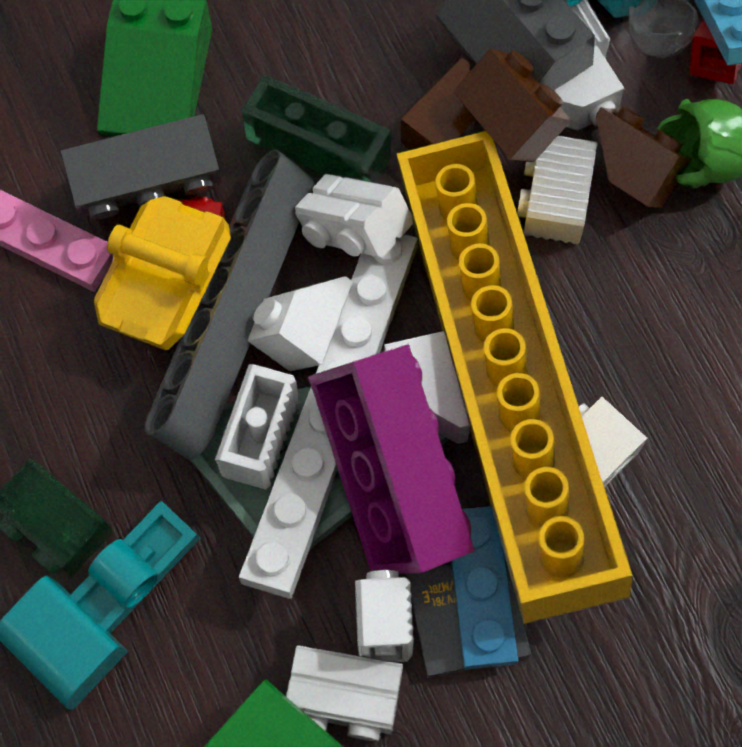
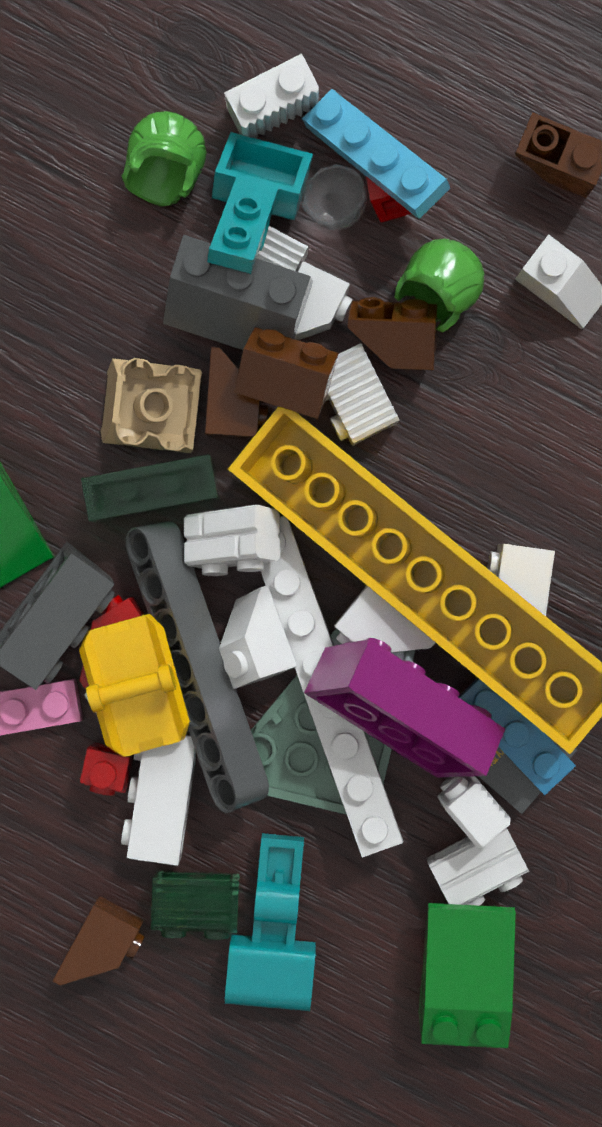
camera: 40 degrees left, 20 degrees up
(77, 338) = (106, 770): none -> red brick
(100, 401) = (160, 803): none -> white brick
(258, 426) = (293, 748): white brick -> none
(373, 75) = (151, 405): none -> tan slope

